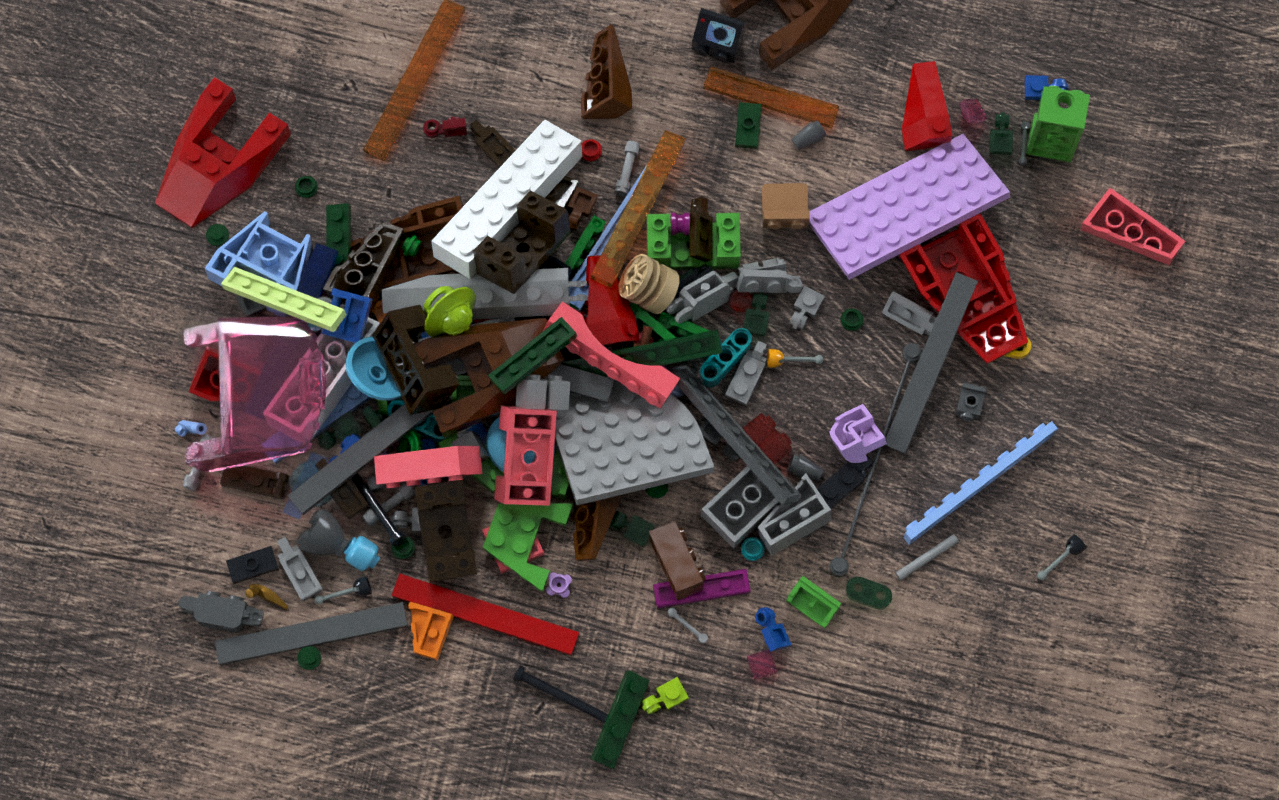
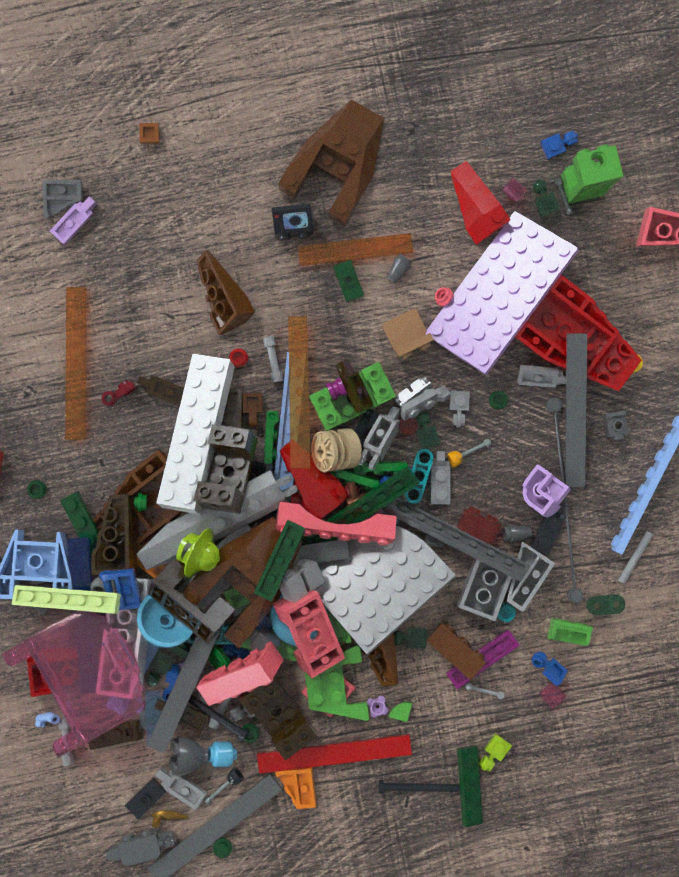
camera: 25 degrees left, 15 degrees up
(582, 602) = (401, 711): none -> bright green tile
(843, 185) = (443, 296): none -> coral plate

